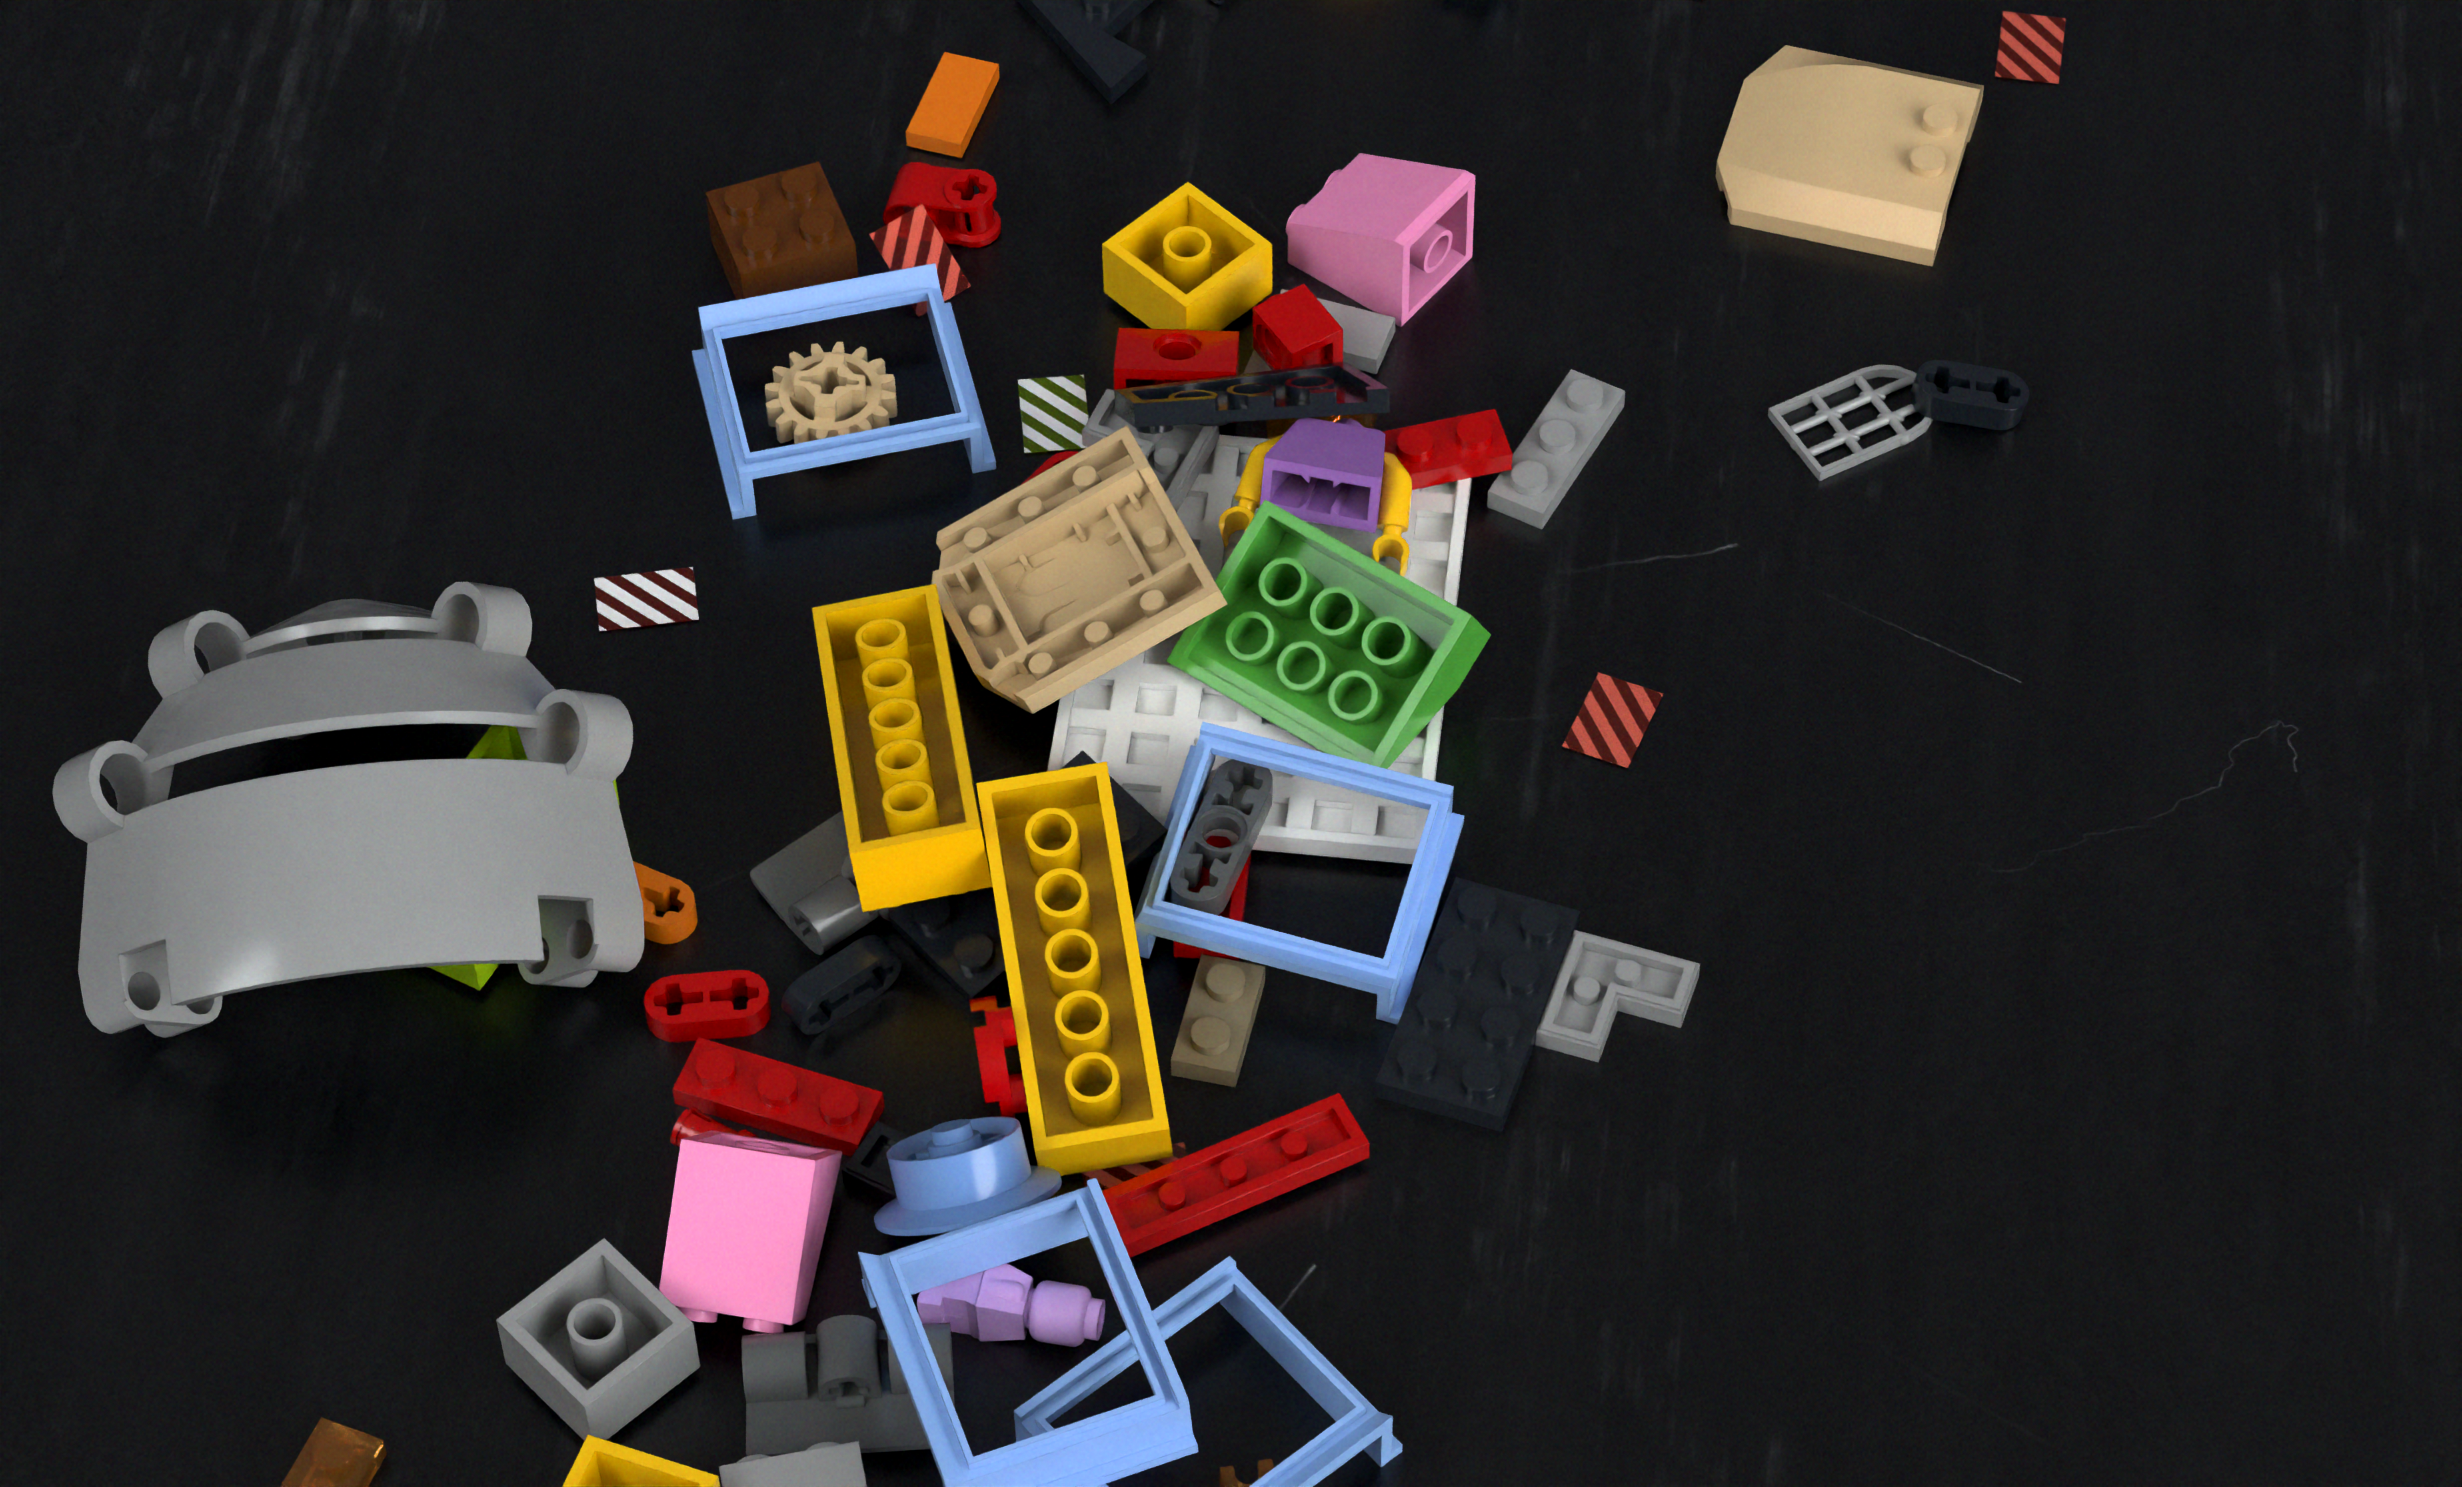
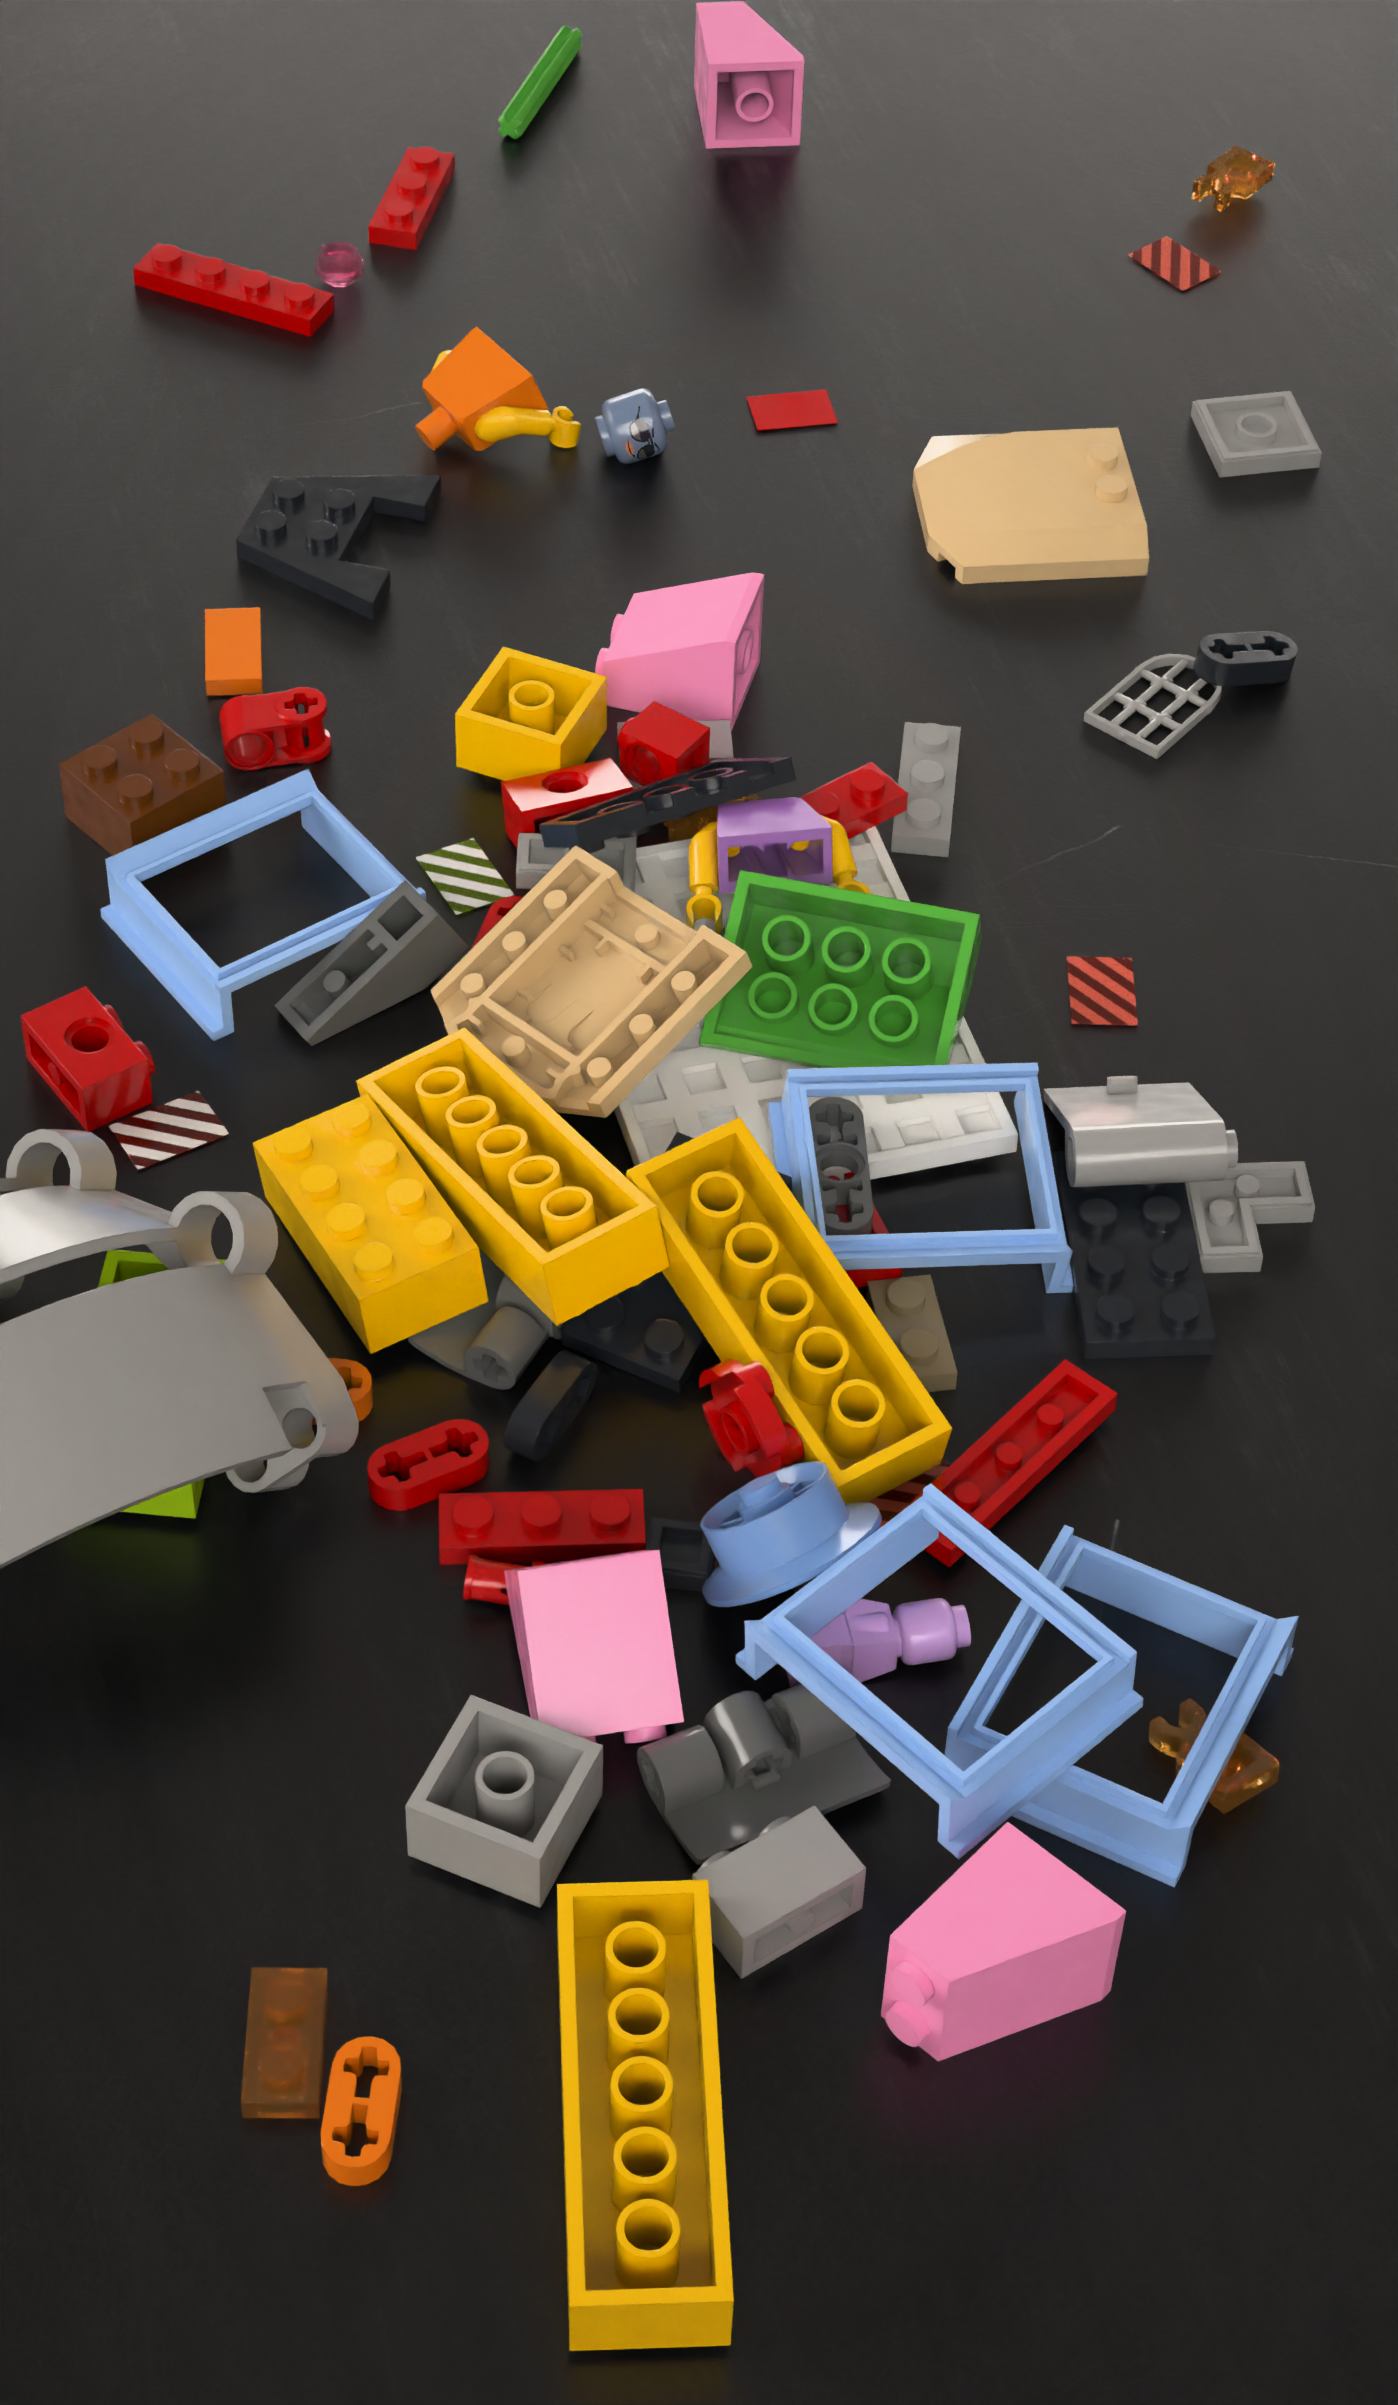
camera: 25 degrees left, 5 degrees down
(599, 506) = (88, 1058): none -> red brick
(761, 754) = (371, 1223): none -> yellow brick
(829, 395) = (256, 908): tan gear -> none
(908, 489) = (375, 966): none -> dark grey slope
(917, 242) = (266, 763): clear red sticker -> none
(1538, 883) = (1141, 1134): none -> light grey door
(2030, 47) = (1123, 397): clear red sticker -> none
(2145, 131) = (1255, 434): none -> light grey tile

